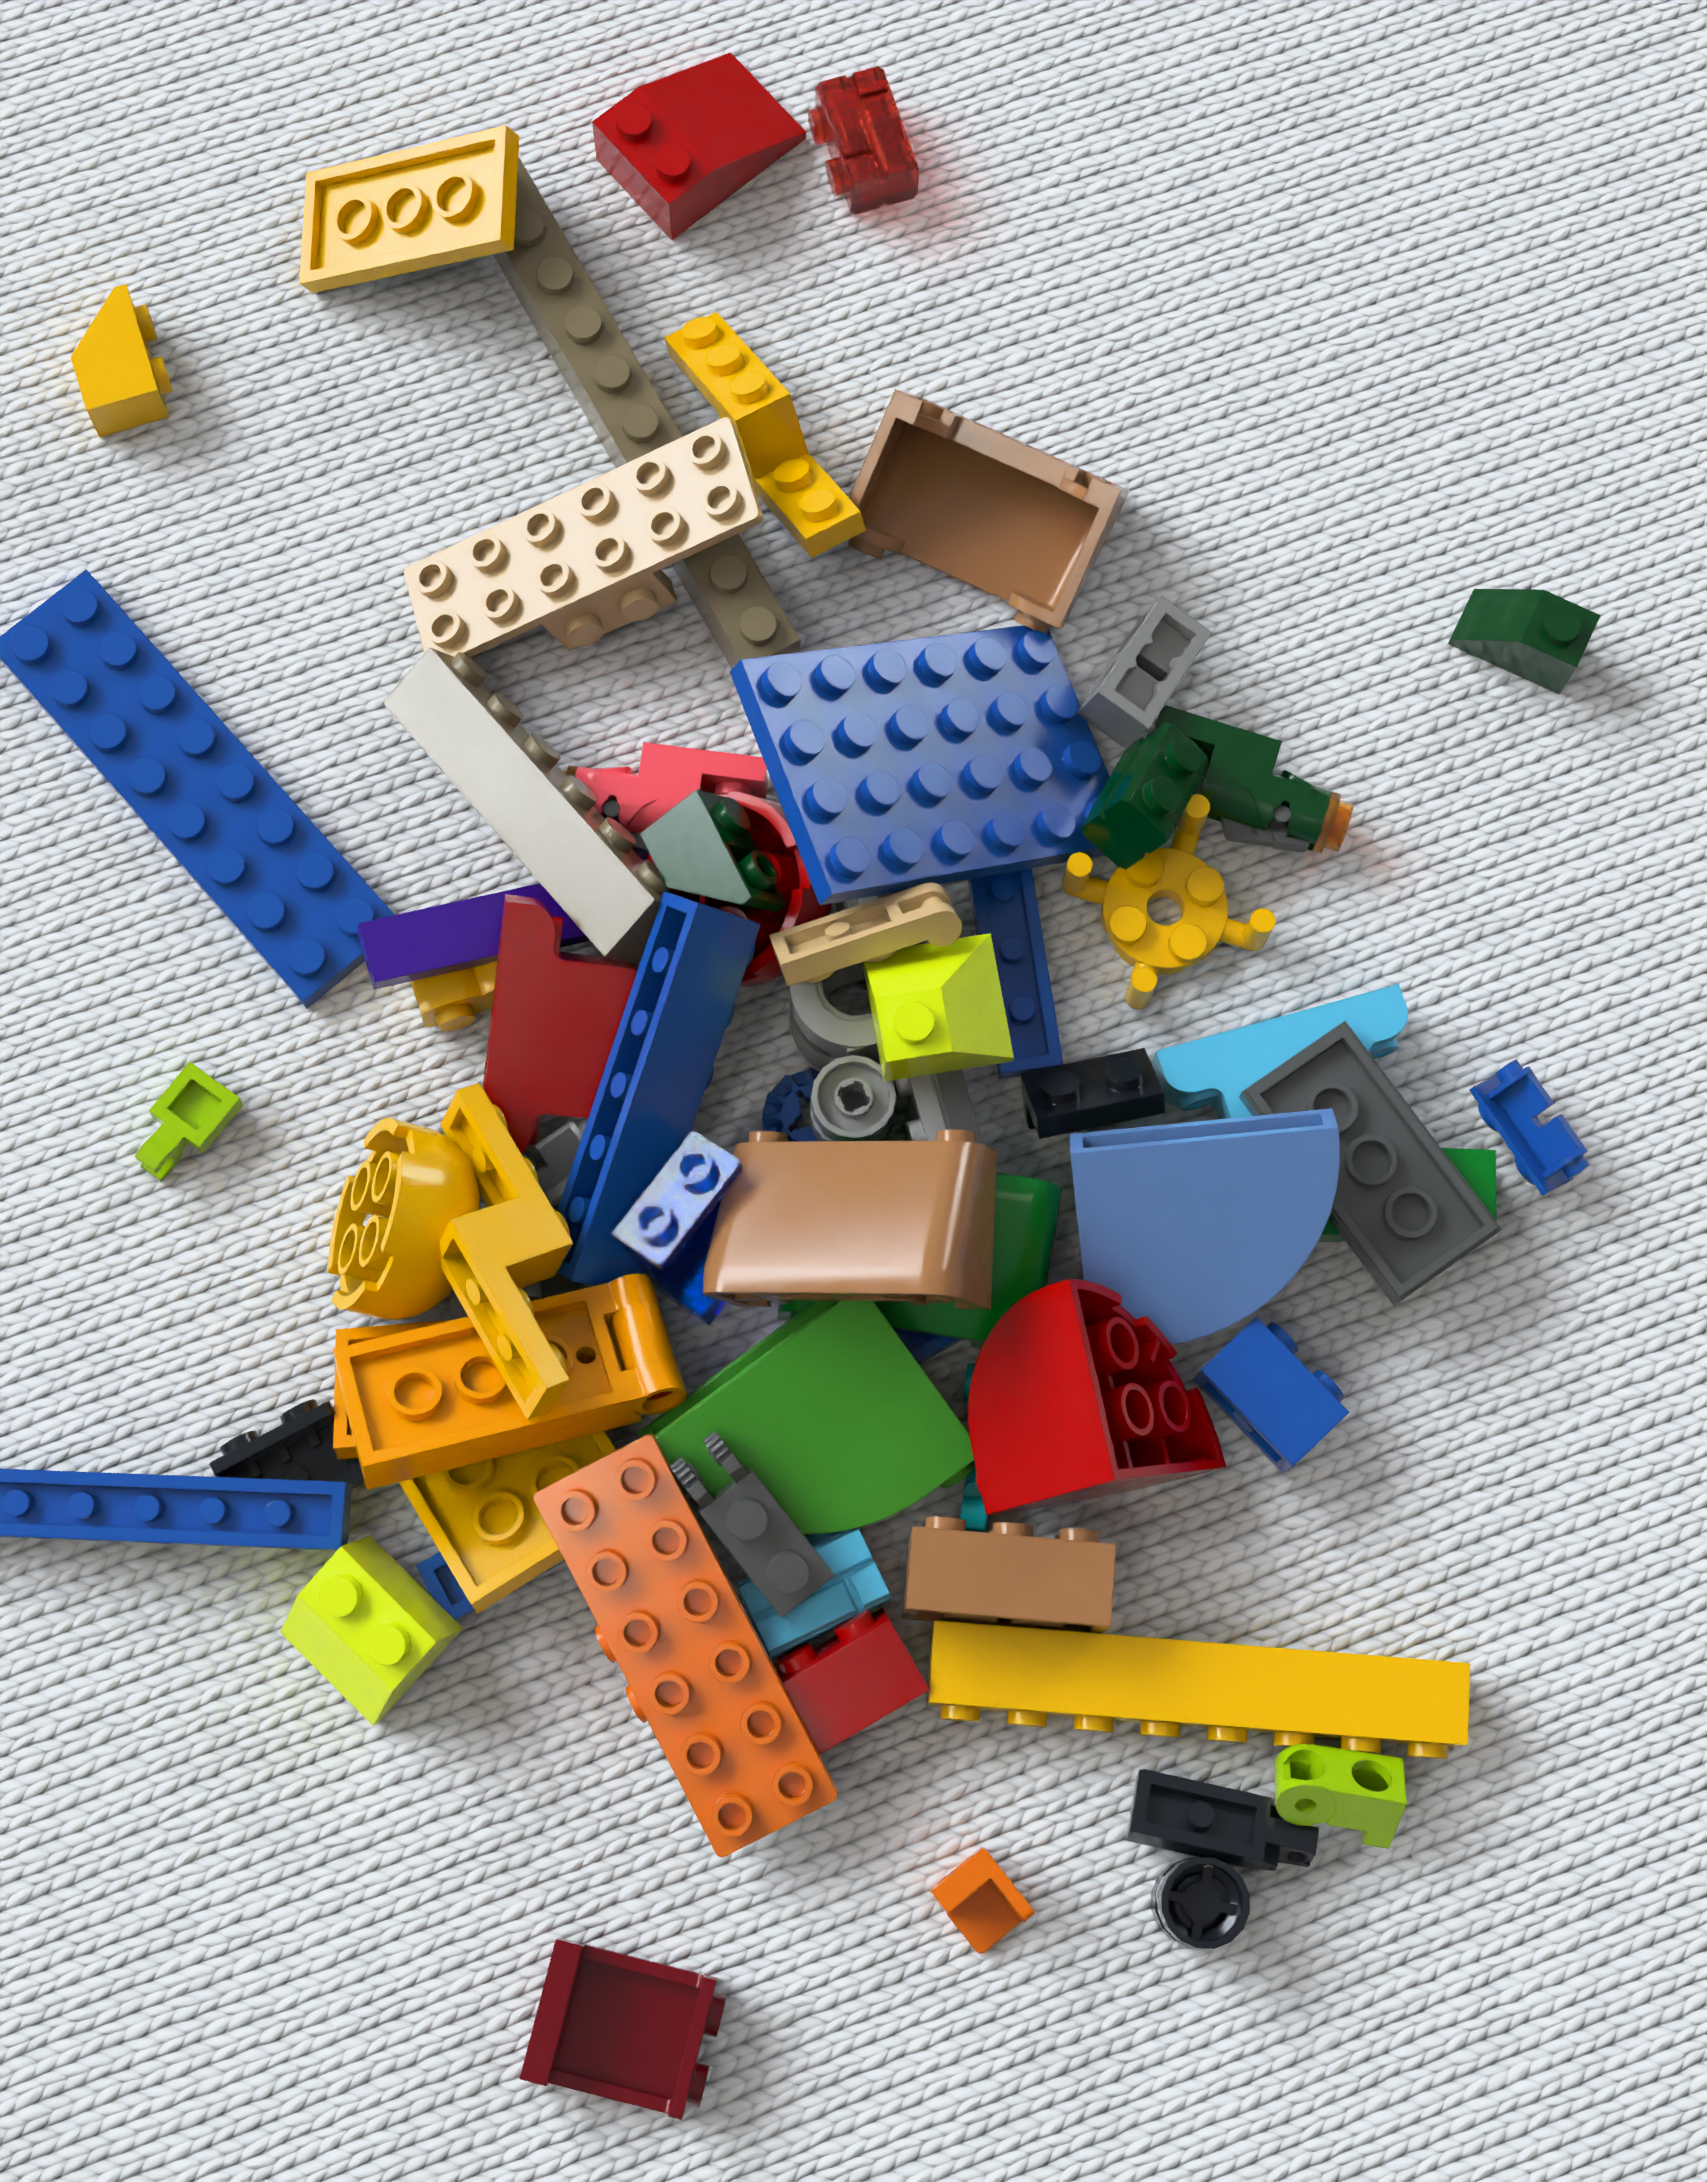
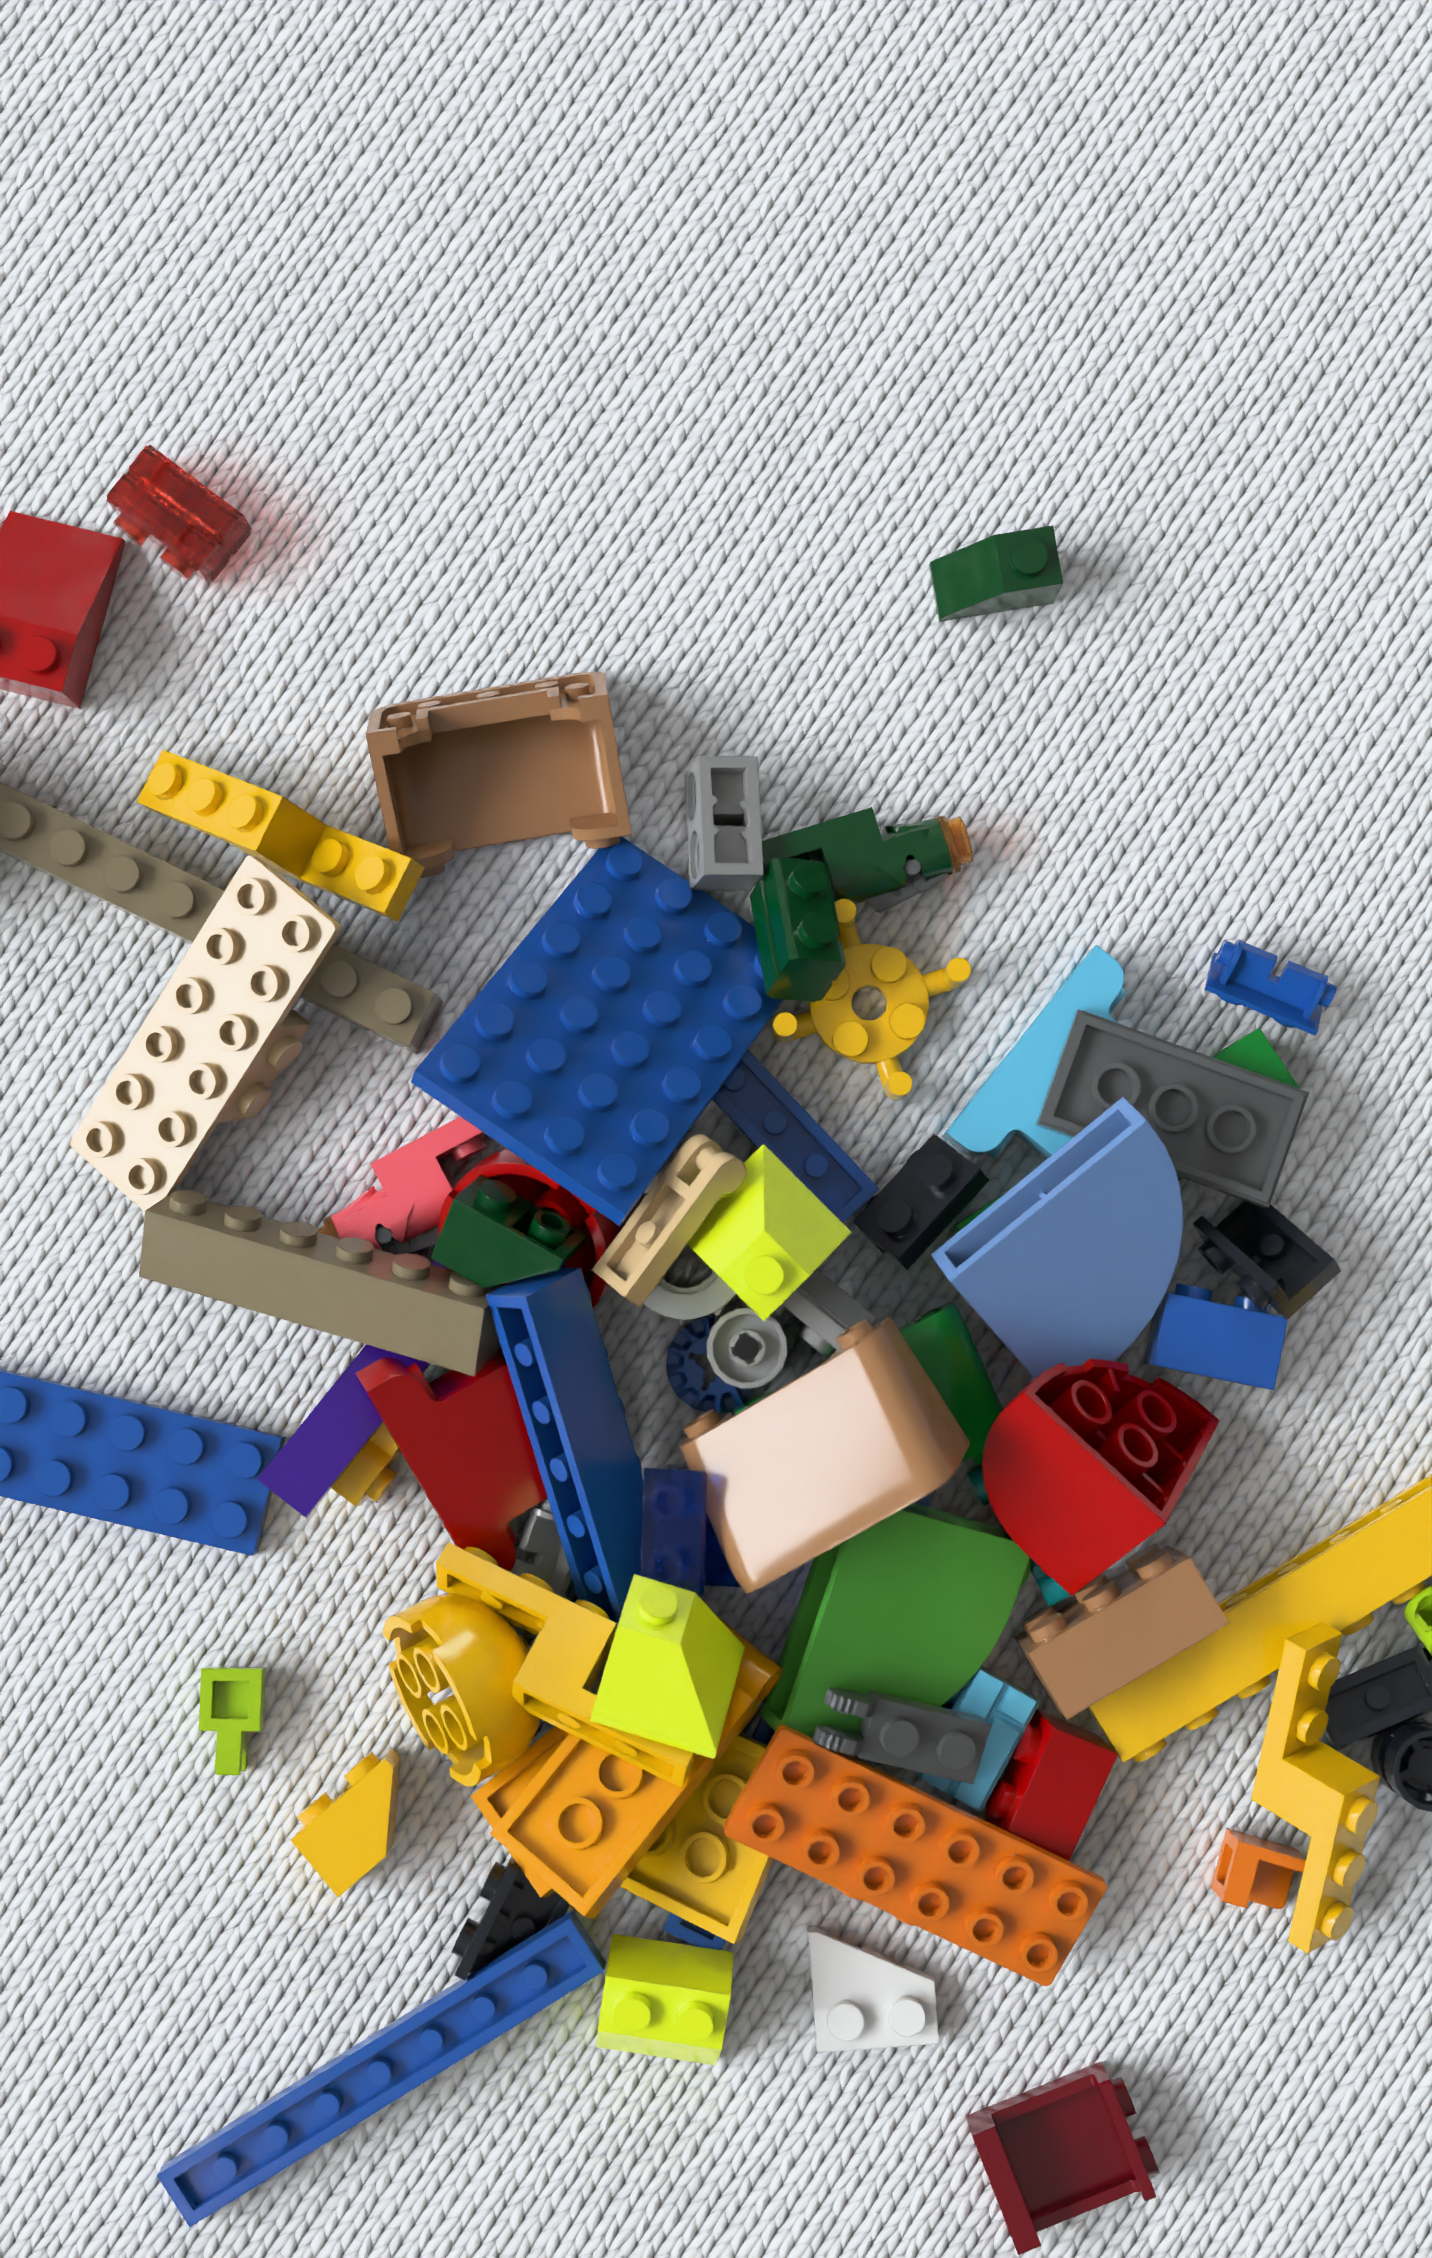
camera: 30 degrees left, 10 degrees up
(220, 1287) = (357, 1827): none -> yellow slope
(549, 1762) = (867, 1999): none -> white wing
(592, 1301) = (669, 1669): none -> neon yellow slope
(1086, 1848) = (1315, 1787): none -> yellow bracket
(1366, 1351) = (1269, 1255): none -> black bracket

